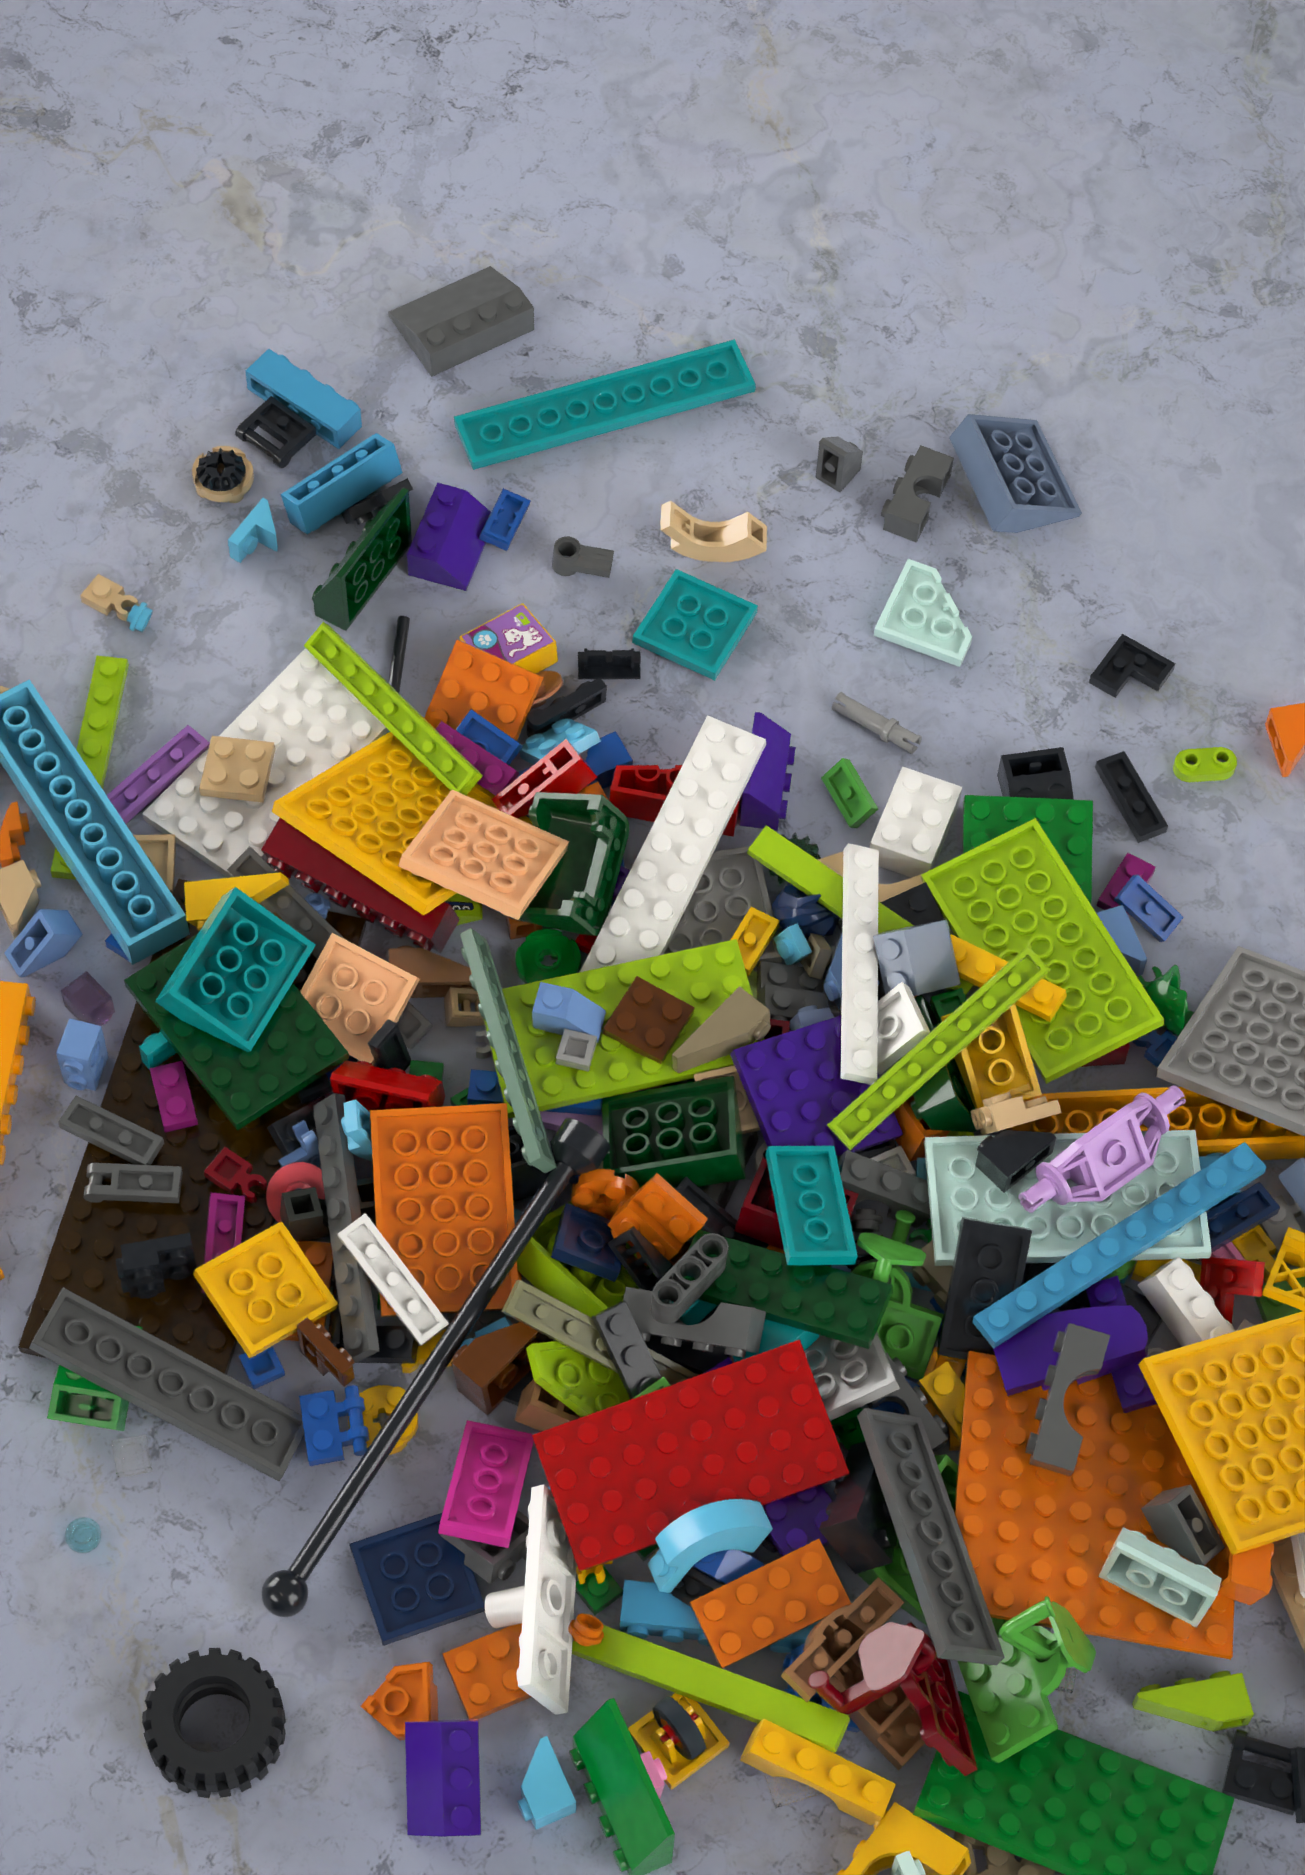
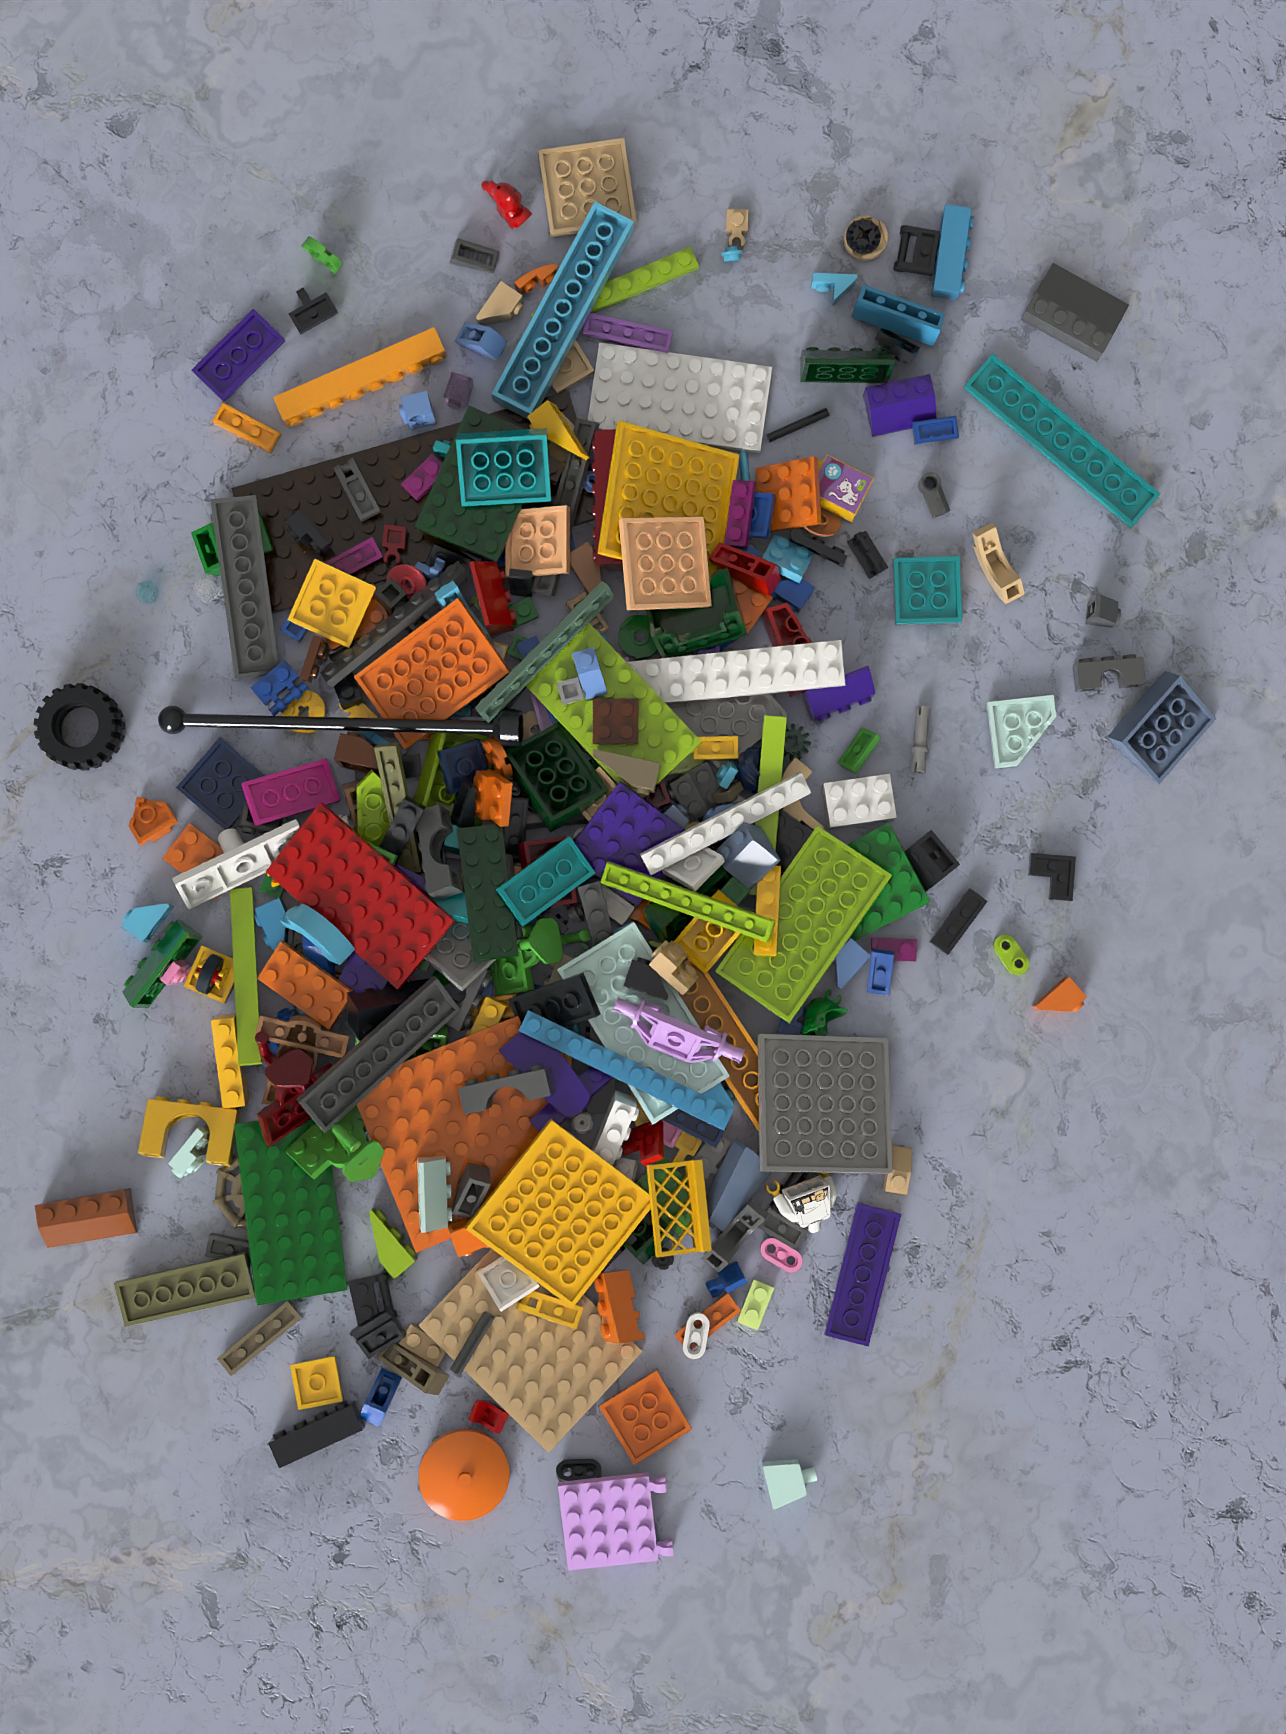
camera: 60 degrees right, 25 degrees up
(110, 1132) = (379, 457): dark grey plate -> none
(237, 769) = (657, 379): tan plate -> none
(392, 710) = (746, 446): lime tile -> none
(393, 1279) = (372, 671): white plate -> none
(443, 1778) = (118, 865): dark purple slope -> none
(586, 1630) = (245, 893): orange plate -> none
(686, 1292) = (467, 837): dark grey beam -> none

